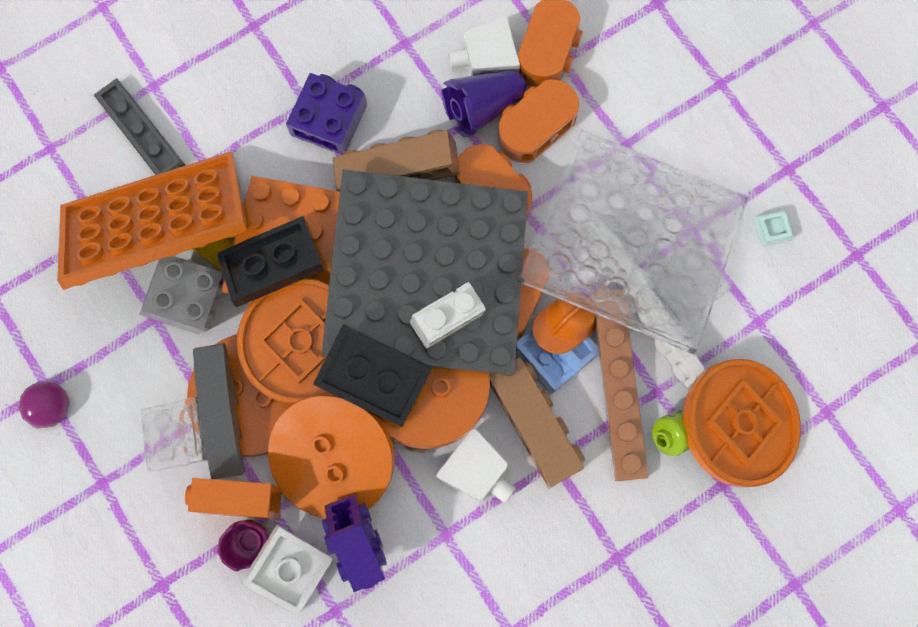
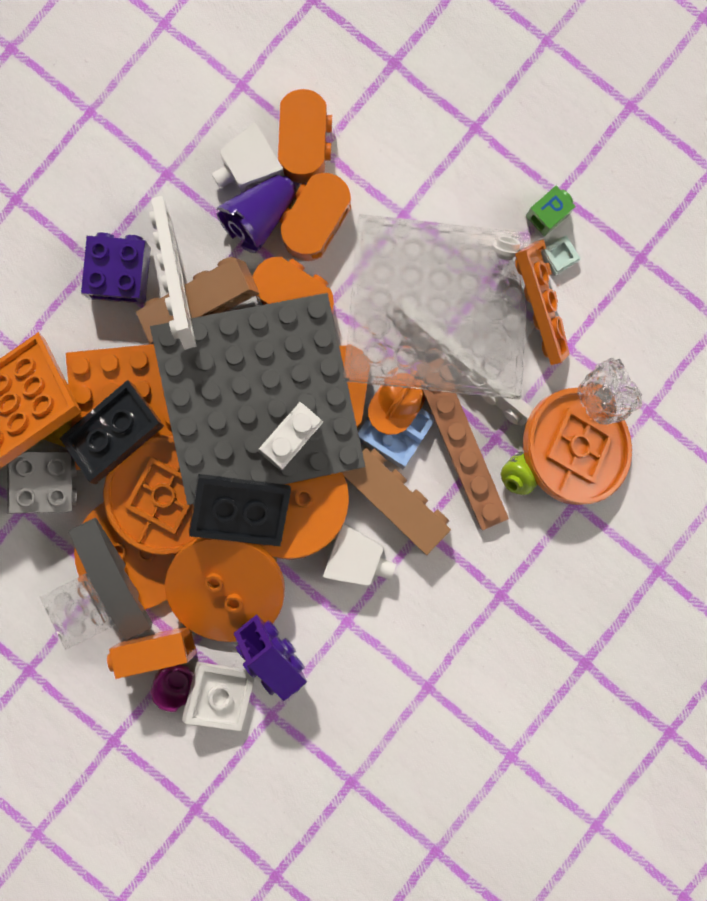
camera: 20 degrees left, 10 degrees up
(379, 131) = (173, 279): none -> white plate
(721, 201) = (506, 247): none -> white plate
(745, 265) = (543, 301): none -> orange wing
(776, 180) = (551, 210): none -> bright green brick
(790, 375) = (609, 393): none -> clear hair

